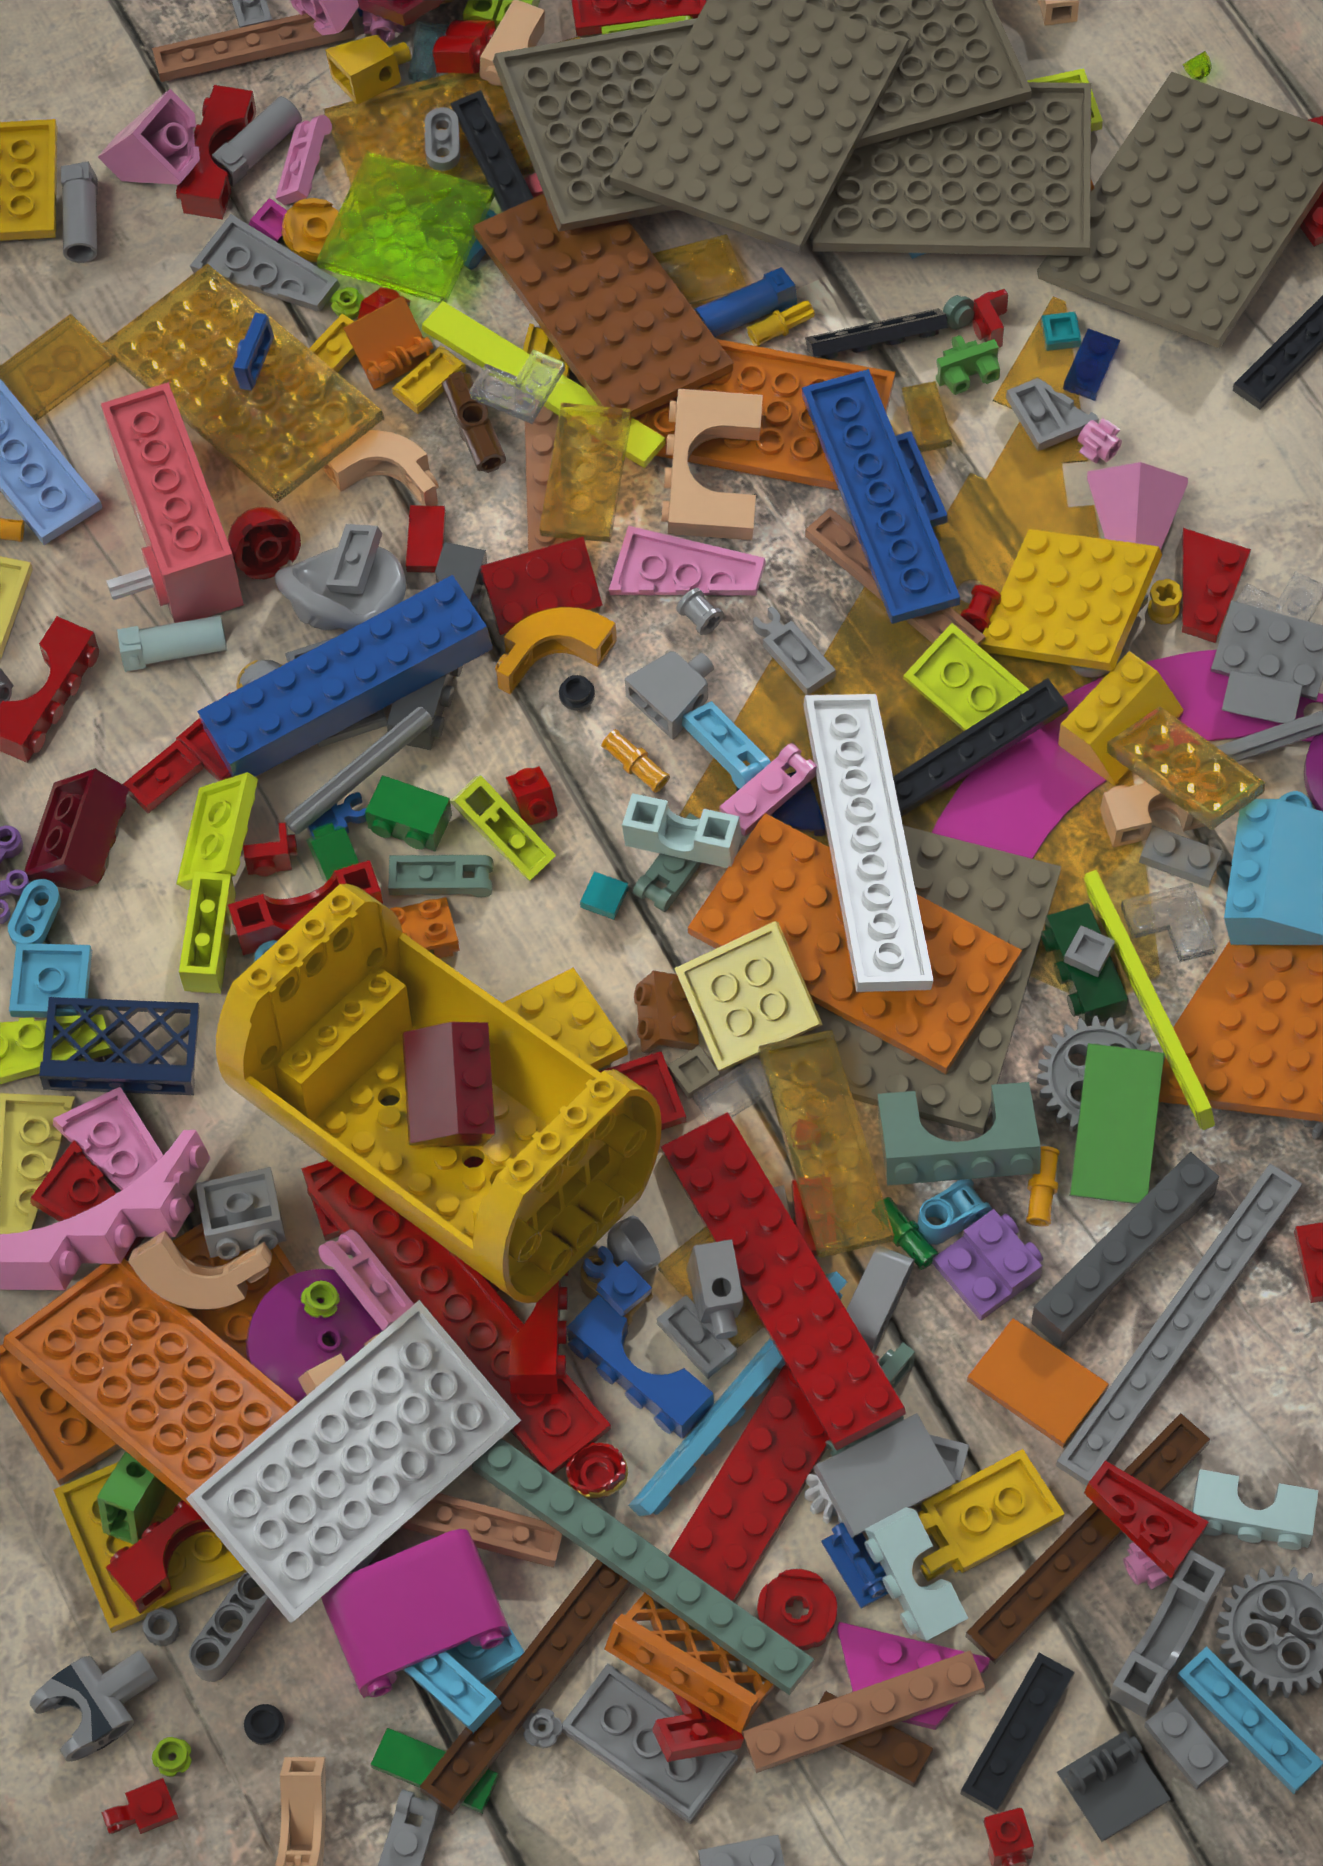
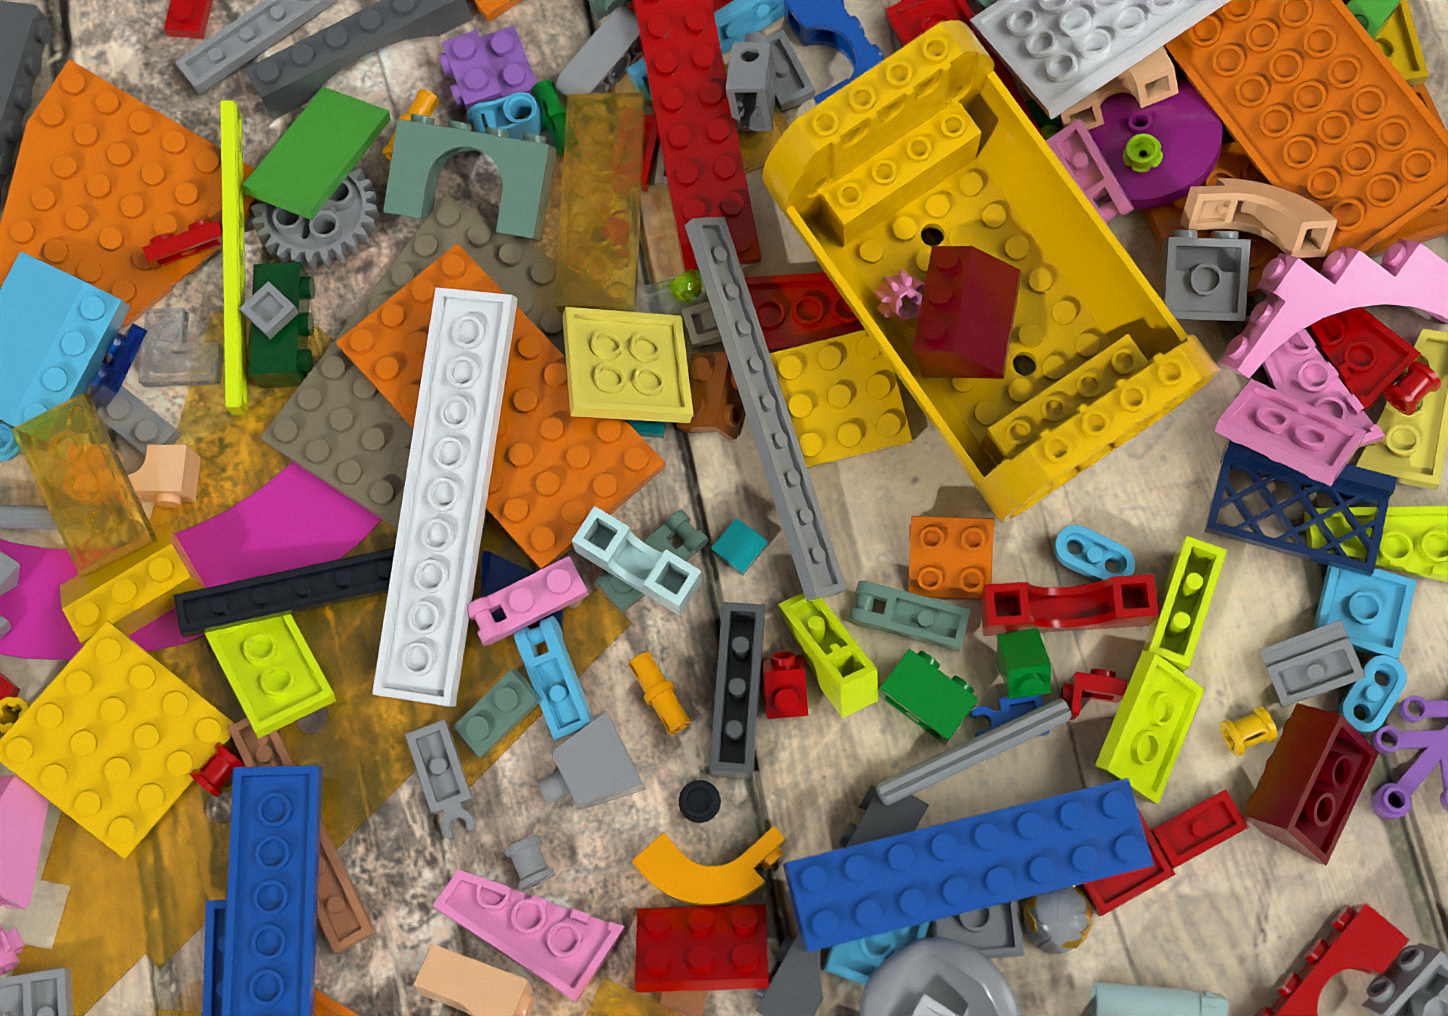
camera: 160 degrees left, 10 degrees up
(34, 1164) = (1412, 388): none -> red bush
(89, 919) = (1312, 663): none -> light grey plate
(134, 858) = (1248, 731): none -> yellow bush
(139, 1086) = (1290, 432): none -> bright pink plate
(514, 1097) = (900, 297): none -> gear
(568, 770) = (737, 691): none -> dark grey brick
(617, 1001) = (765, 408): none -> light grey plate
(721, 1091) = (686, 286): none -> clear neon green hinge
(764, 707) = (497, 713): none -> sand green plate
(1198, 994) = (169, 248): none -> red plate
(1213, 881) = (123, 351): none -> clear blue plate

